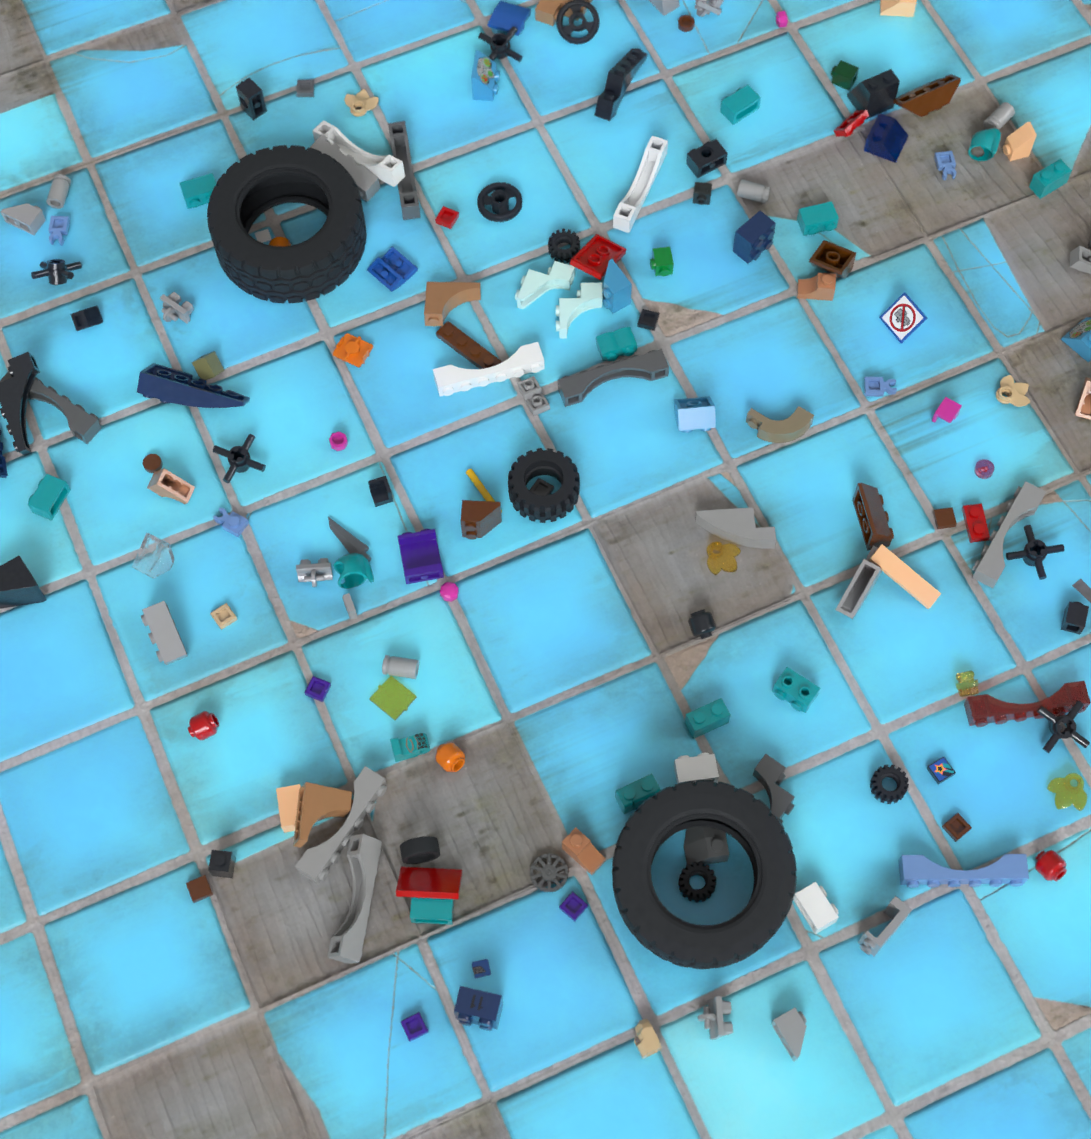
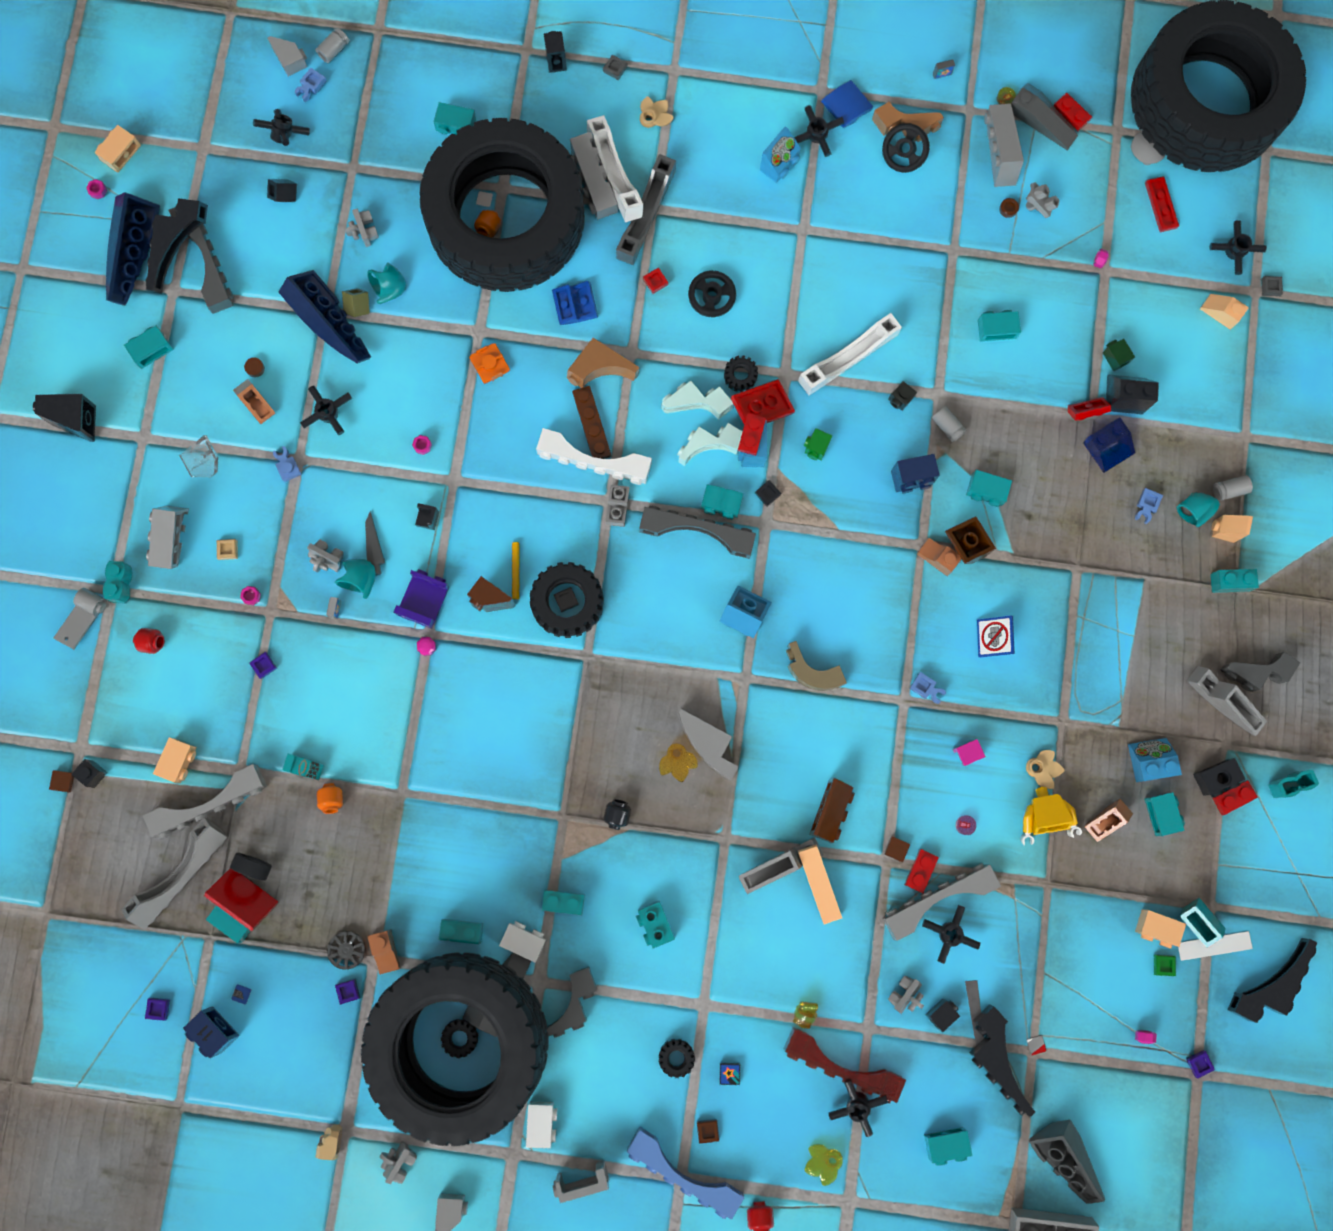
camera: 25 degrees right, 15 degrees up
(129, 742) = (86, 609): none -> light grey door
(144, 694) = (118, 577): none -> teal brick
(229, 332) = (388, 283): none -> teal piece
(269, 639) = (250, 595): none -> dark pink tile
(318, 803) = (189, 774): medium nougat arch -> none
(393, 698) = (319, 713): clear yellow piece -> none
(400, 667) = (340, 691): light grey piece -> none
(608, 273) = (751, 434): none -> red plate
(617, 83) = (900, 235): black arch -> none
(706, 158) = (921, 368): black brick -> none
(929, 96) = (1180, 425): reddish brown wedge -> none
(1035, 628) = (912, 987): none -> light grey hips
(1041, 420) = (1048, 815): none -> yellow torso

